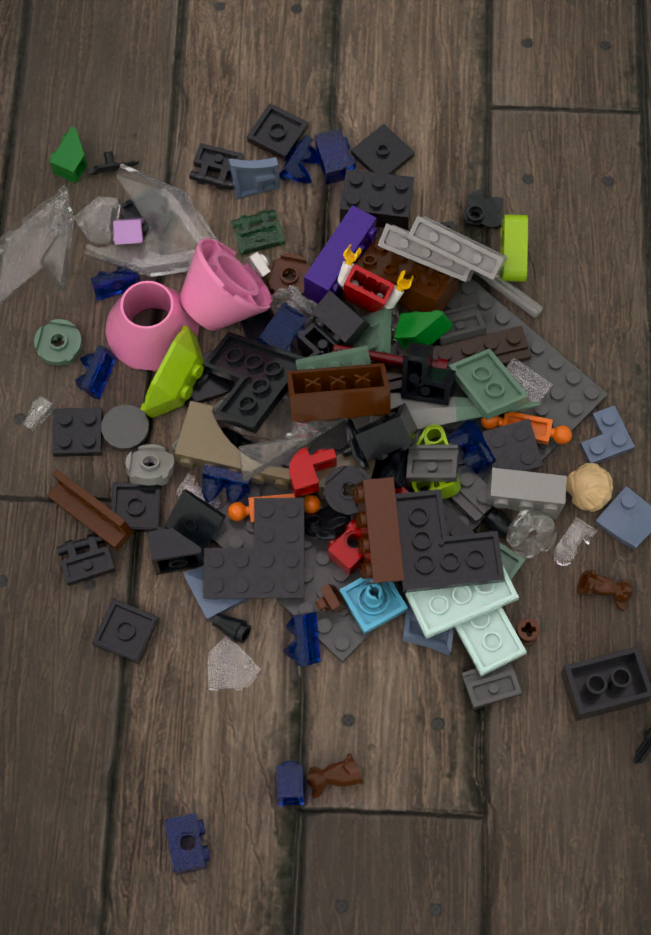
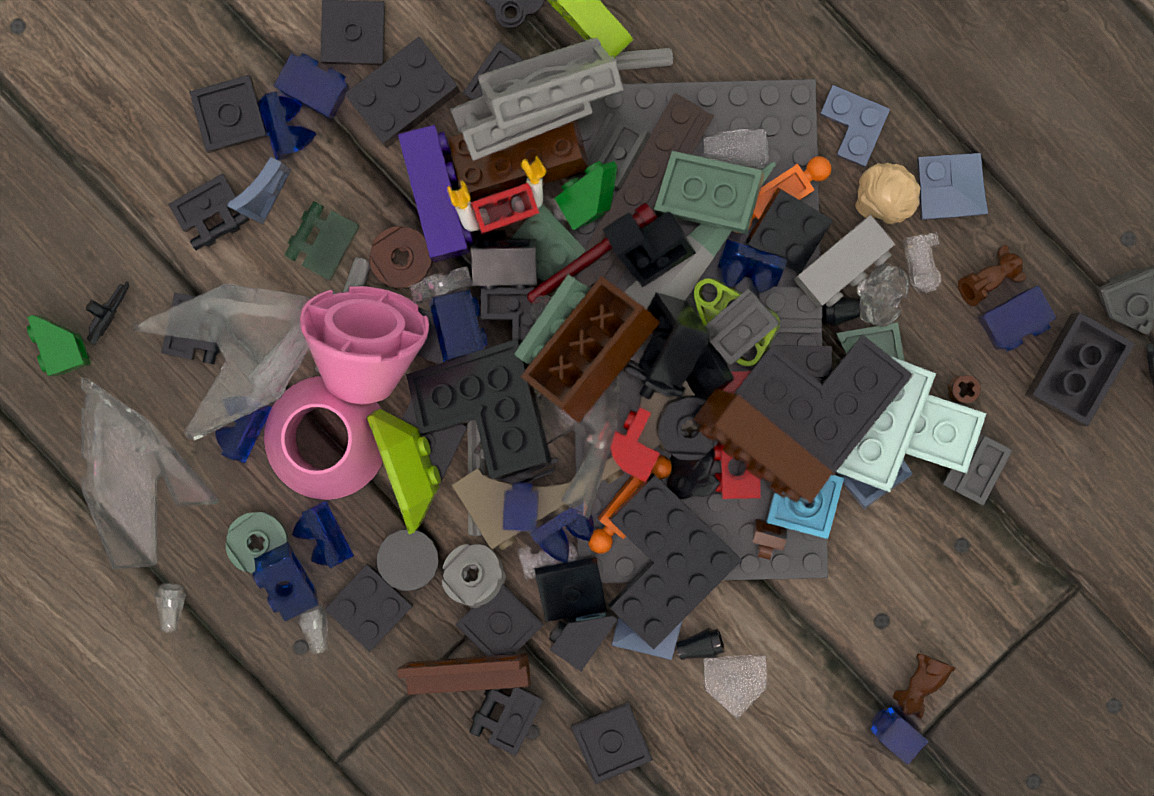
camera: 45 degrees left, 20 degrees up
(60, 361) = (283, 565): none -> clear blue brick
(98, 218) = (160, 382): clear plate -> none
(128, 230) = (202, 369): lavender panel -> none
(213, 438) = (521, 507): none -> clear blue brick
(258, 263) = (364, 278): white plate -> none
(306, 647) = (784, 597): clear blue tile -> none
(597, 623) = (1017, 318): none -> clear blue brick

